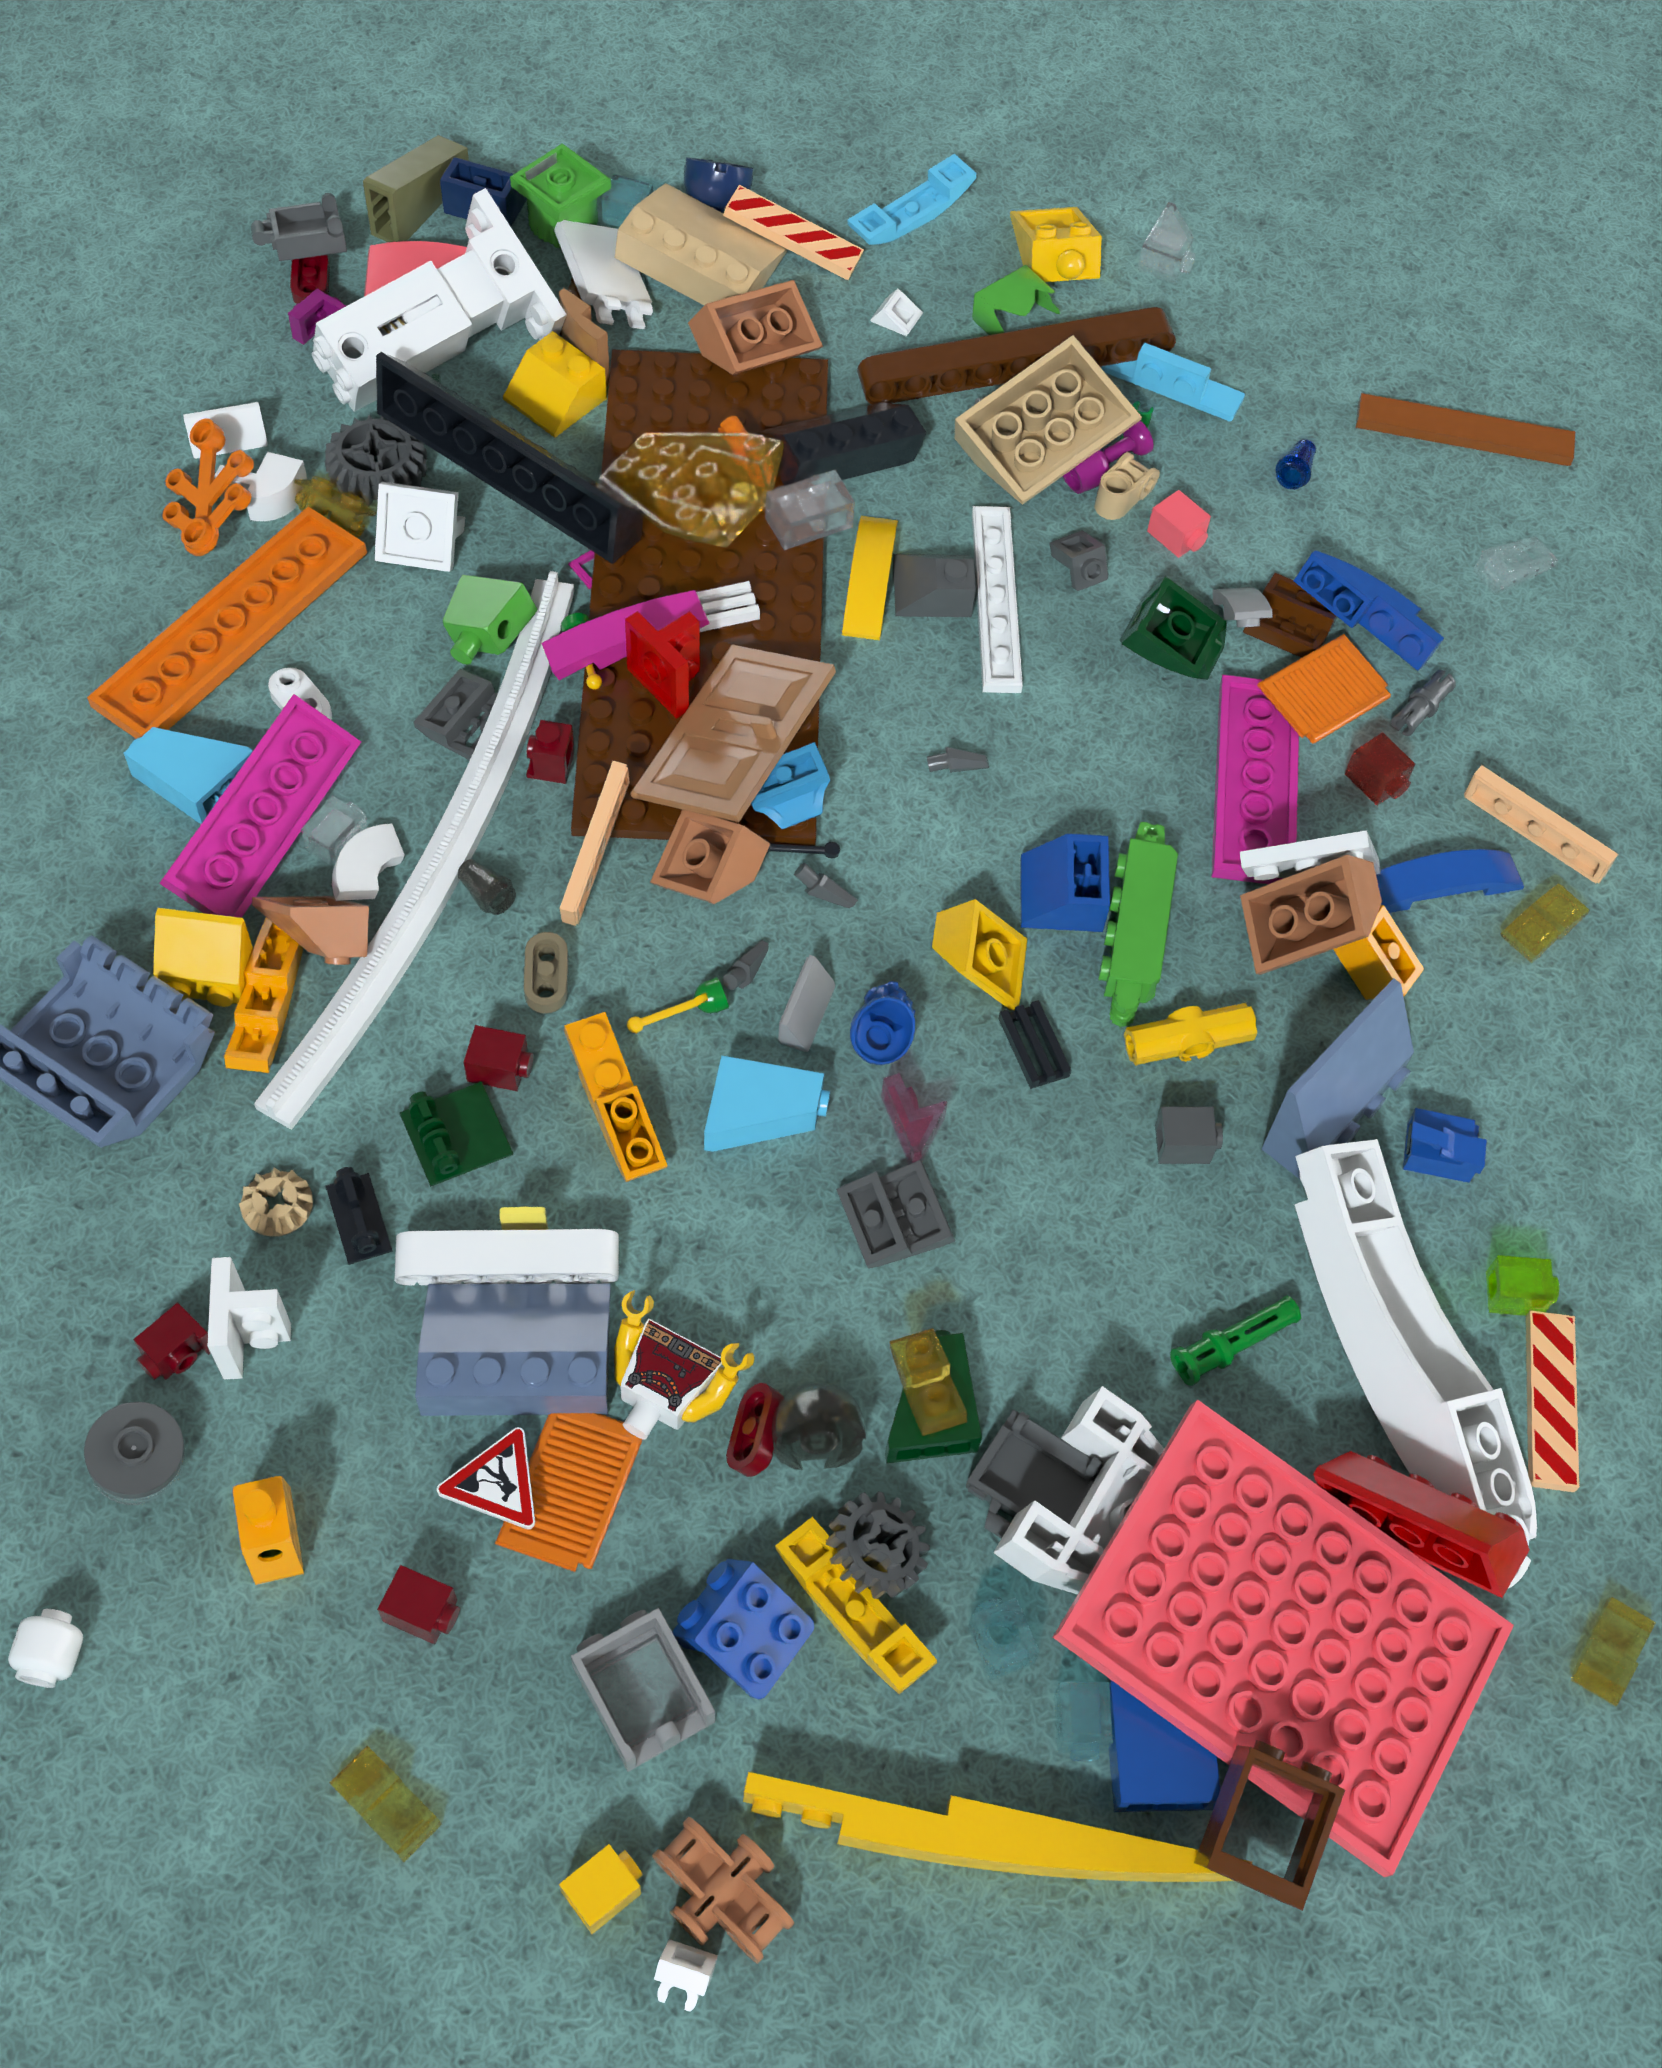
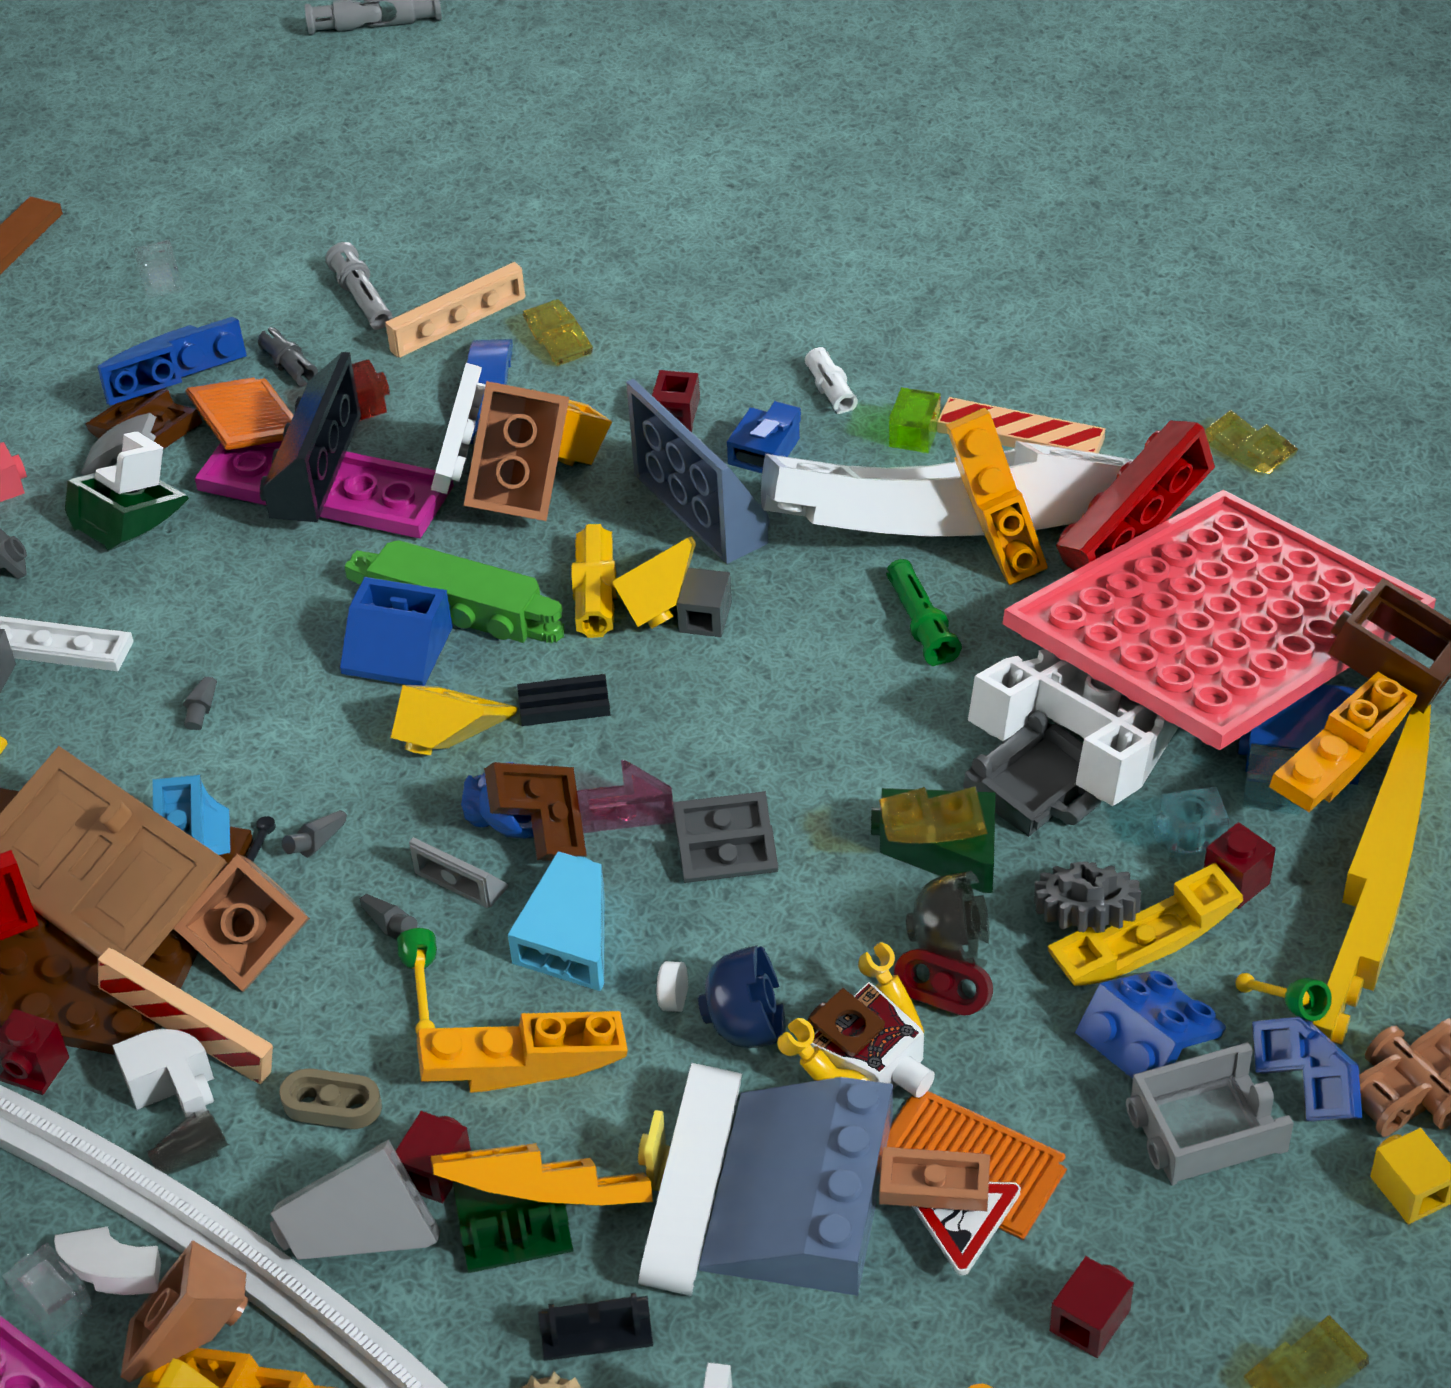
camera: 70 degrees left, 15 degrees down
(427, 1018) = (356, 1210): none -> light grey slope
(469, 1127) = (520, 1174): none -> light orange slope
(514, 1448) = (934, 1179): none -> nougat plate
(552, 852) = (165, 1065): none -> white brick
(681, 1330) = (826, 1014): none -> reddish brown bracket
(690, 1263) = (742, 999): none -> dark blue cylinder
(693, 1797) = (1328, 1073): none -> blue tile
(707, 1202) = (672, 986): none -> white tile
(774, 1752) = (1304, 992): none -> green hinge
(882, 1047) = (547, 796): none -> reddish brown plate
(951, 1687) = (1243, 859): none -> dark red brick
(1111, 1772) = (1345, 744): none -> light orange slope
(1190, 1079) = (656, 584): none -> yellow slope
(1198, 622) = (136, 465): none -> white panel
(1276, 752) = (313, 444): none -> black slope
(1380, 1373) = (995, 496): none -> light orange slope
(1470, 1050) = (678, 394): none -> dark red brick
(1559, 725) = (354, 277): none -> light grey pin
(1562, 1194) = (837, 391): none -> white pin

